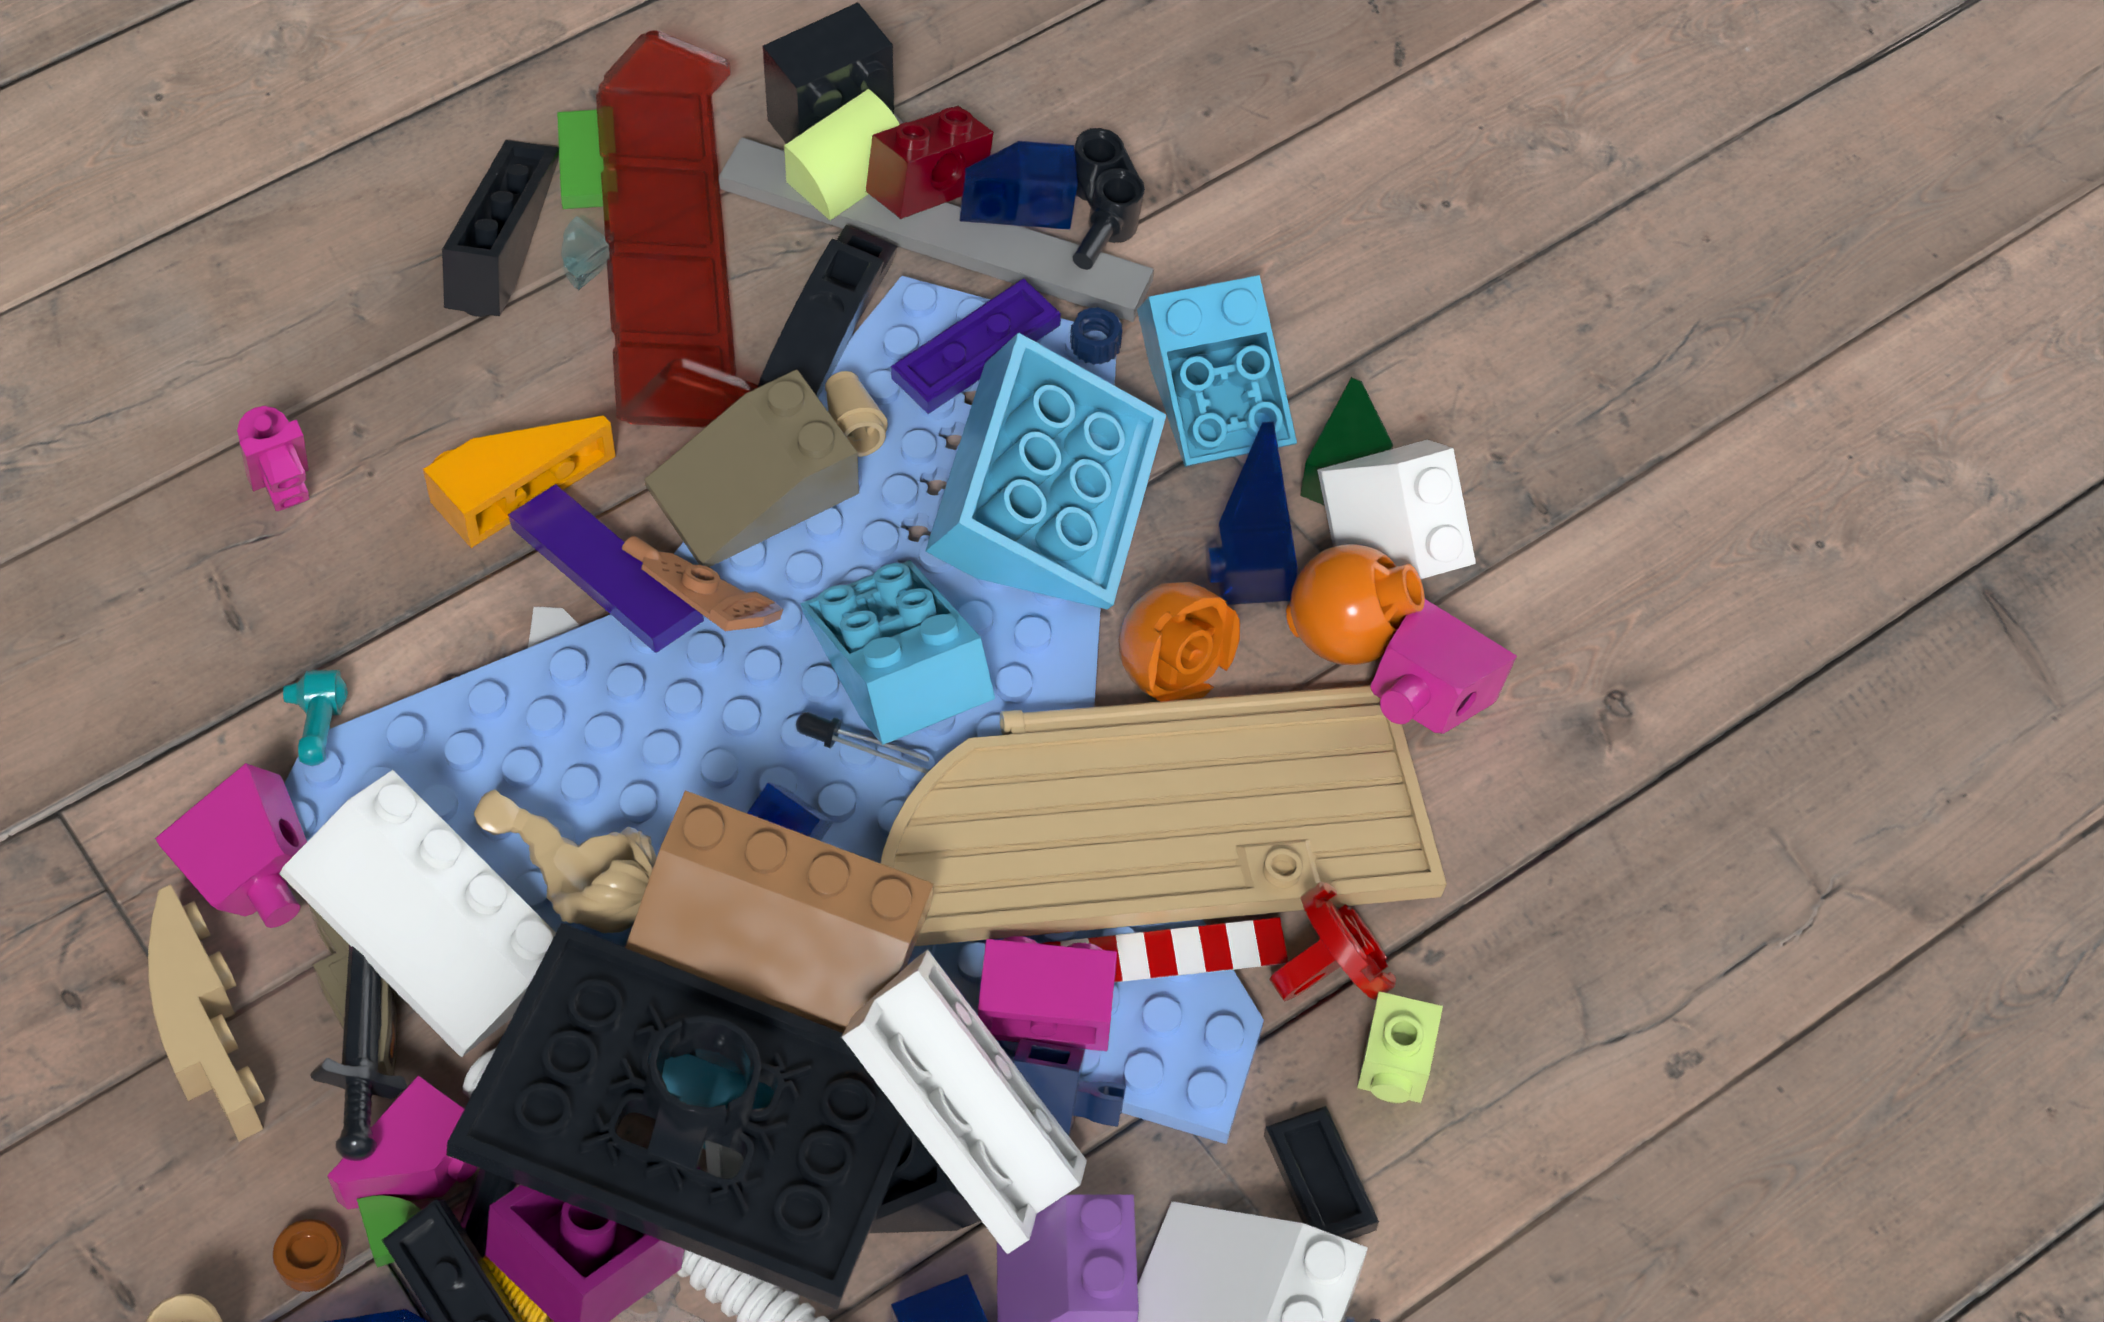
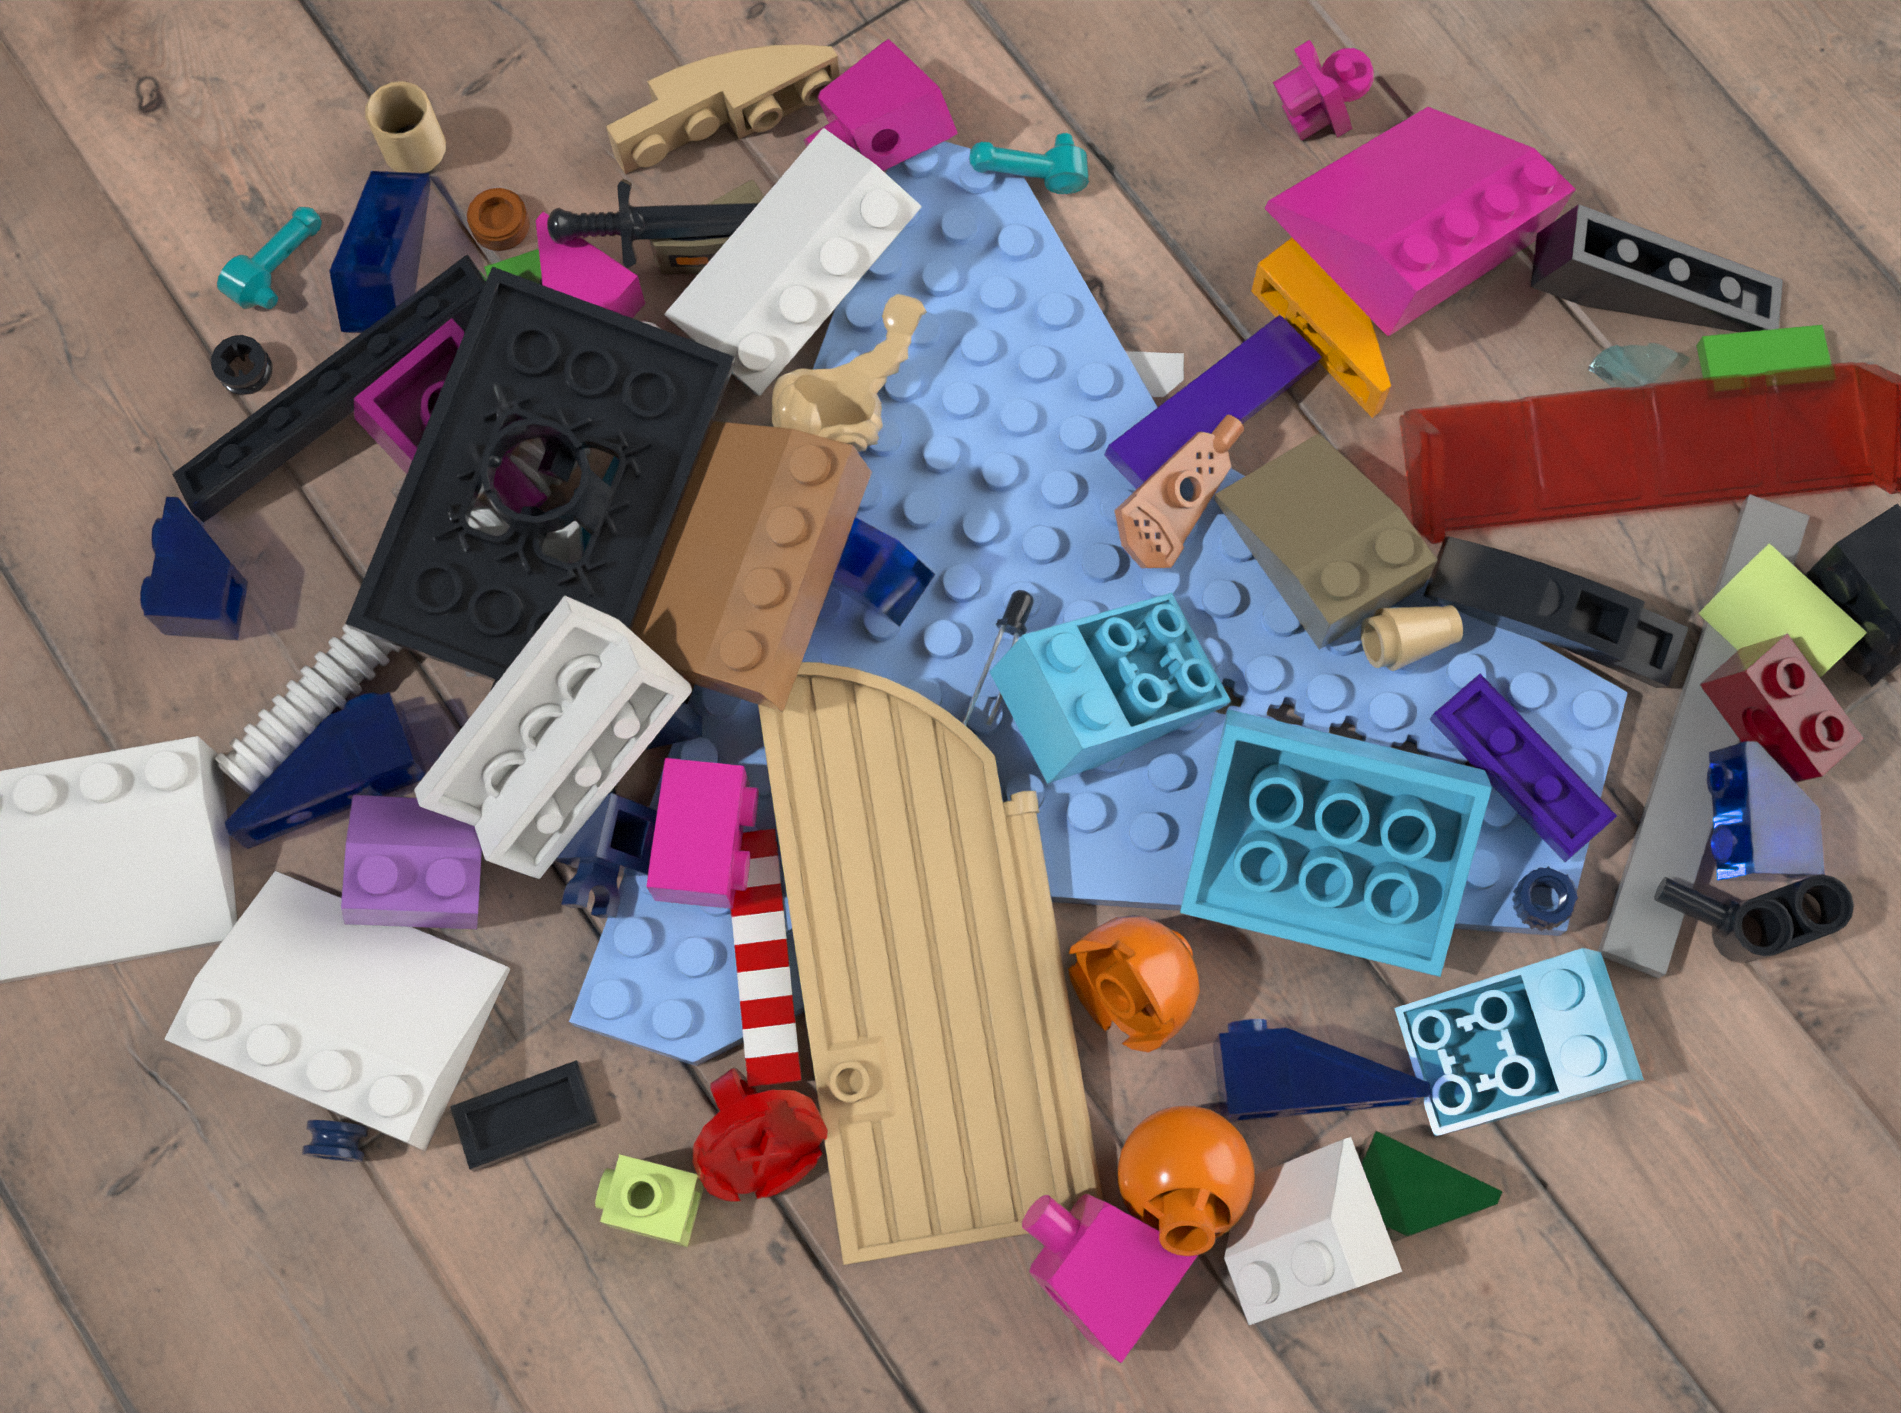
camera: 95 degrees right, 15 degrees up
(421, 382) = (1421, 213): none -> dark pink slope

